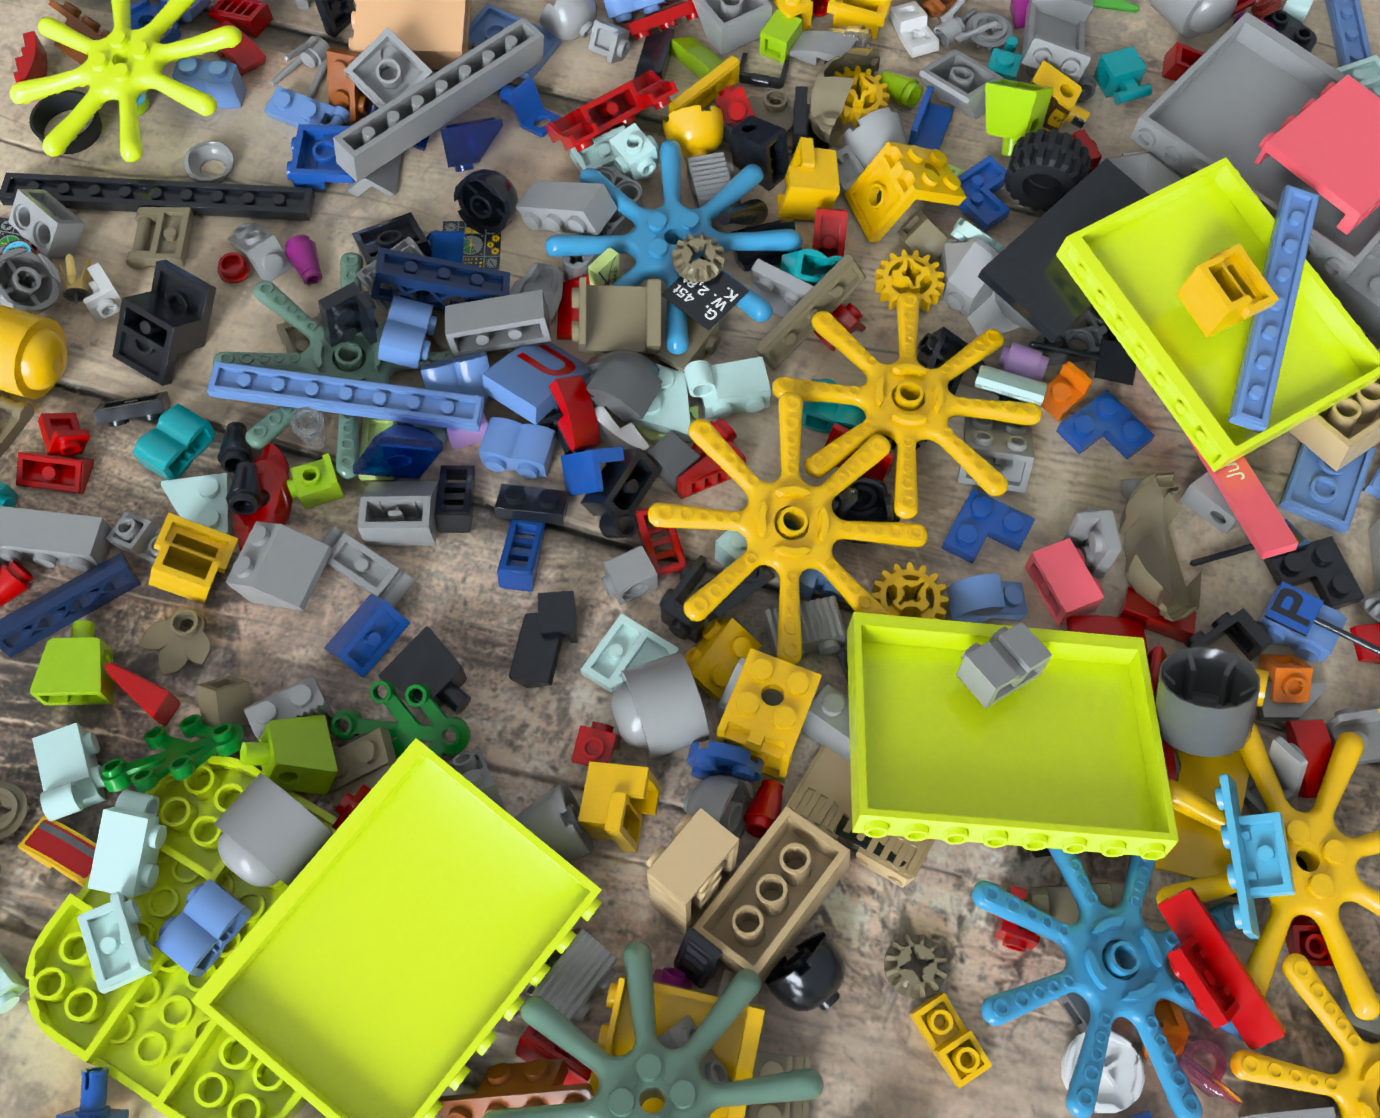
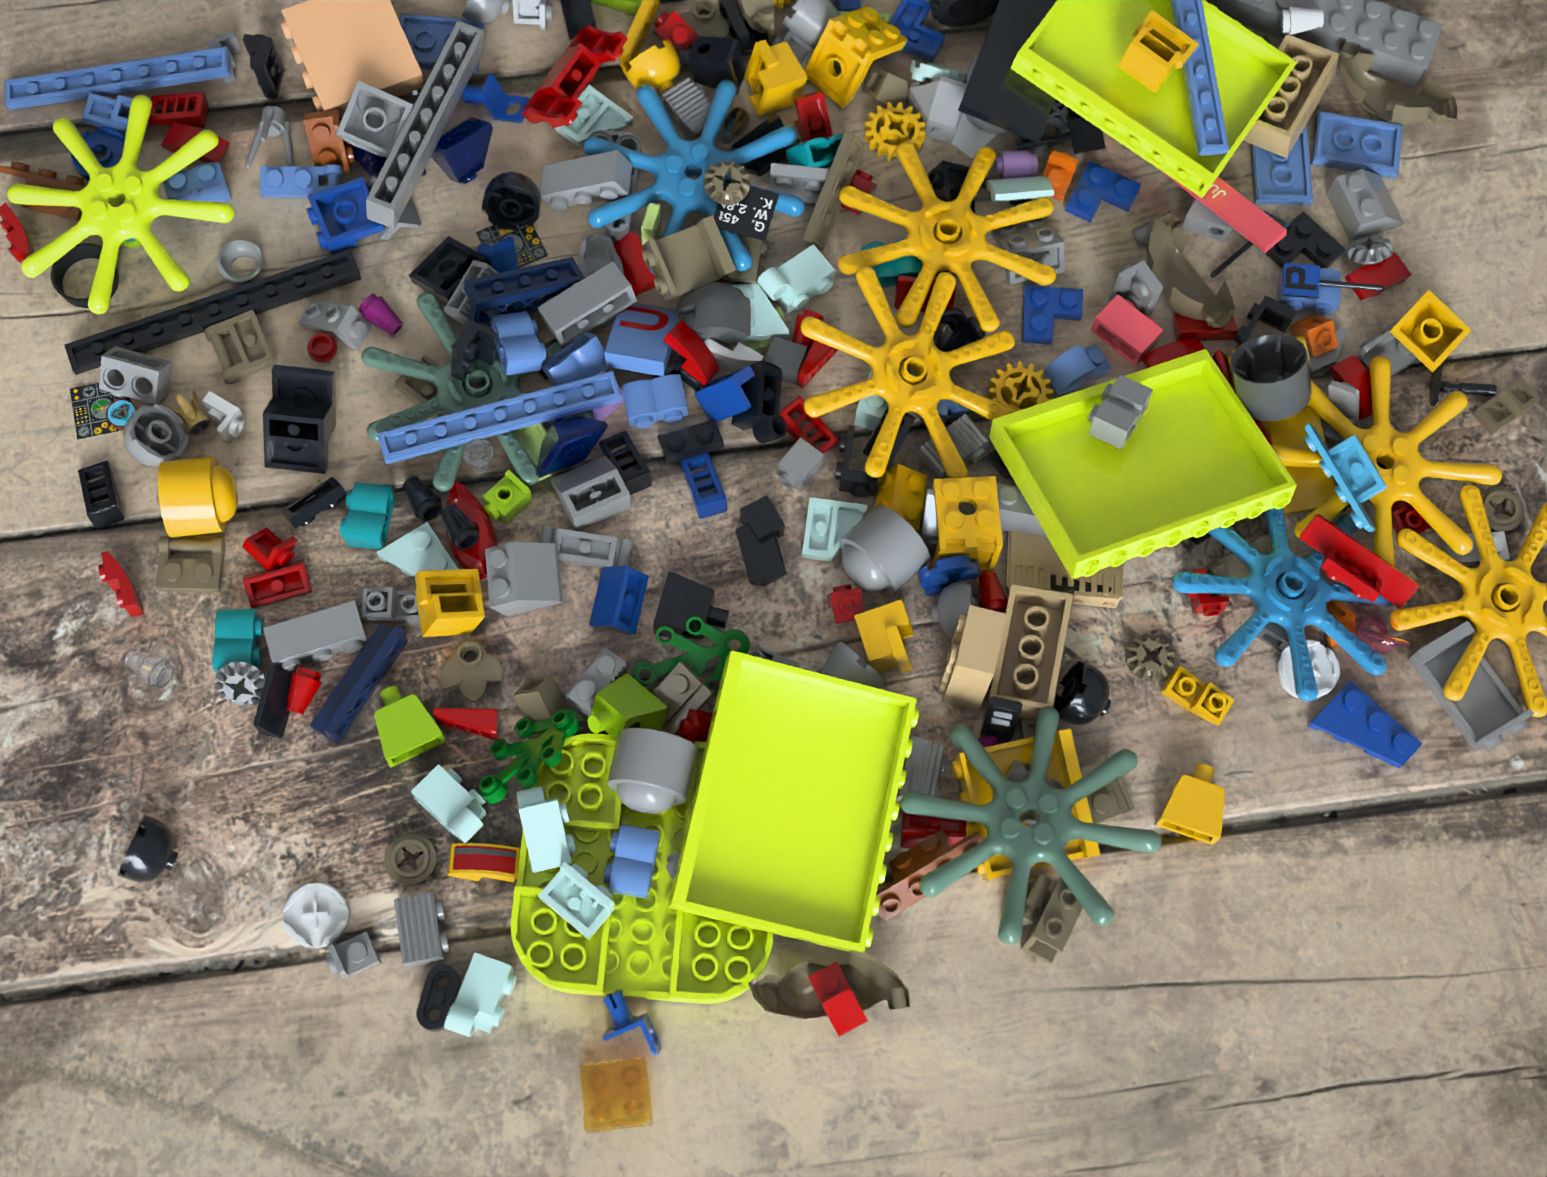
camera: 30 degrees left, 5 degrees up
(635, 152) = (617, 108): light aqua brick -> none

